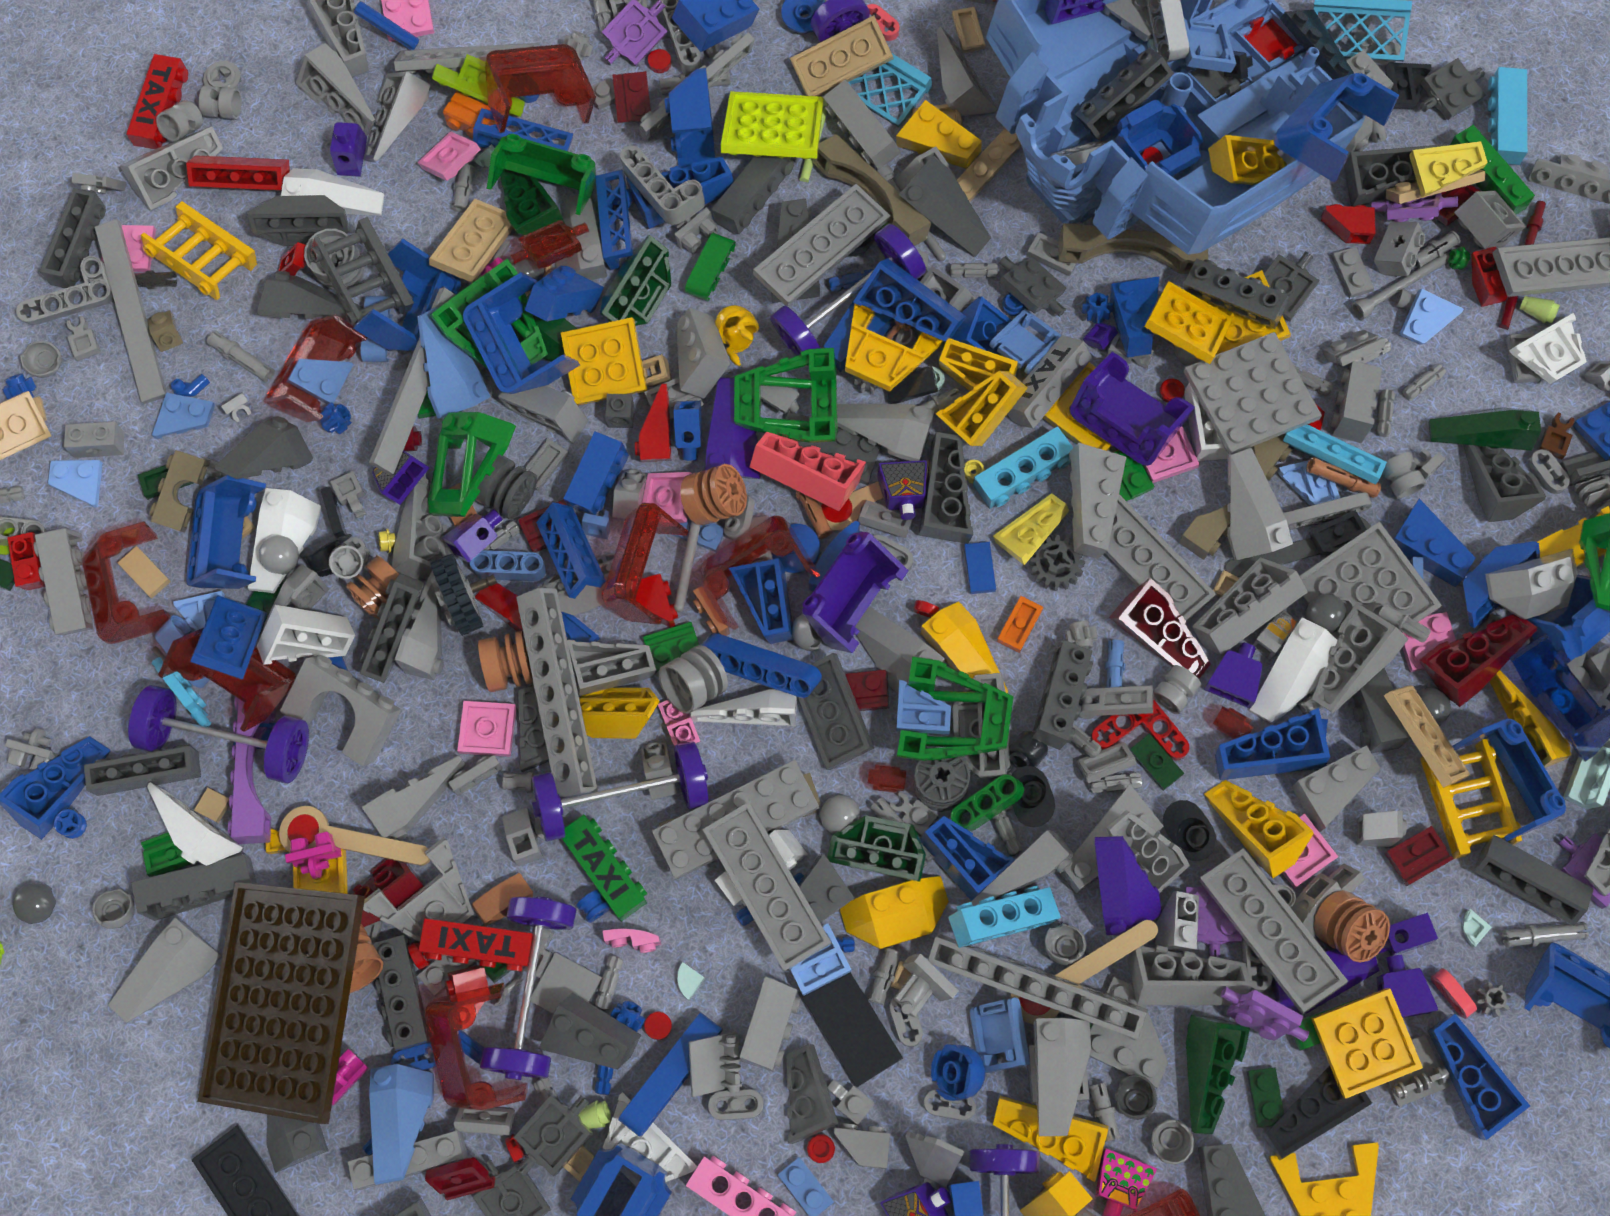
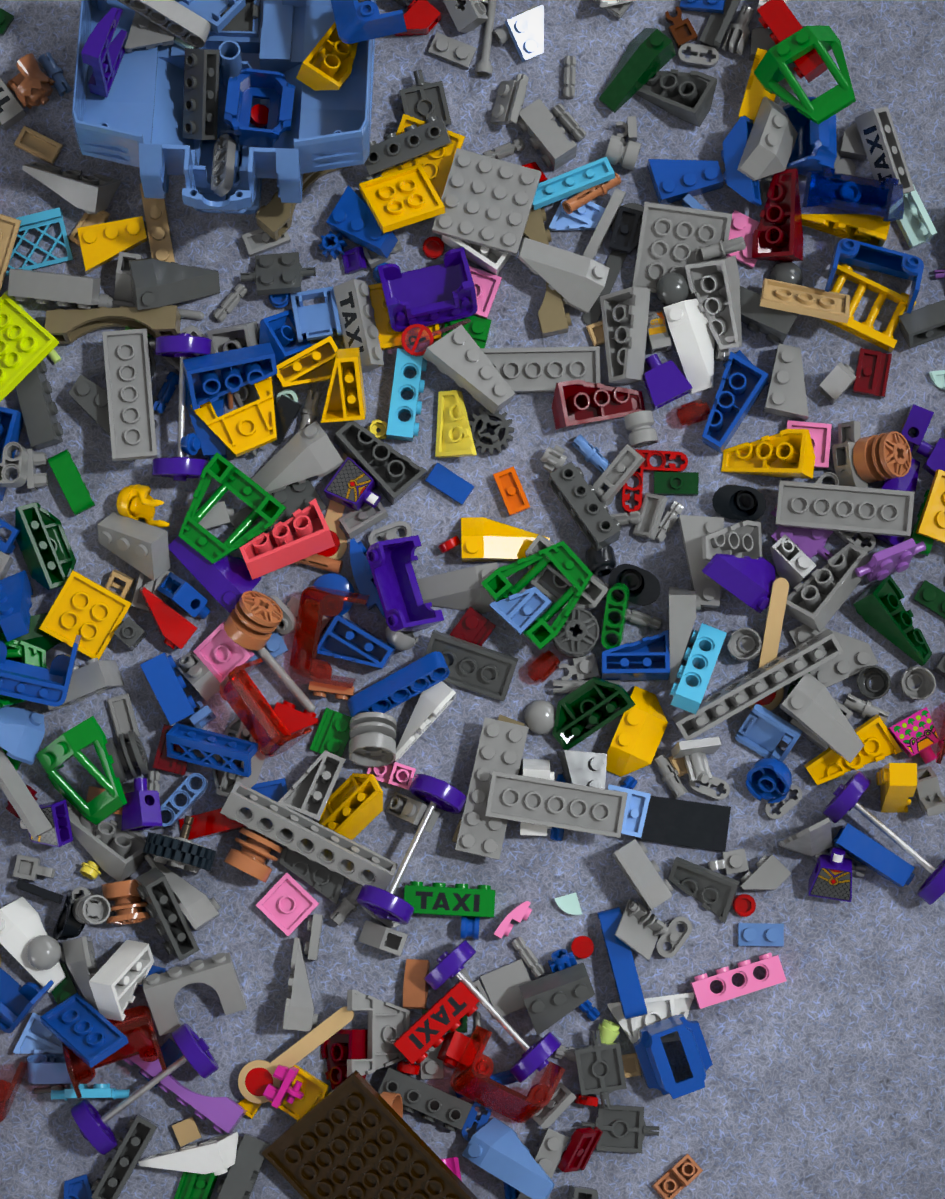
camera: 55 degrees left, 10 degrees up
(823, 326) = (190, 444): none -> blue plate
(1083, 431) = (419, 337): none -> piece

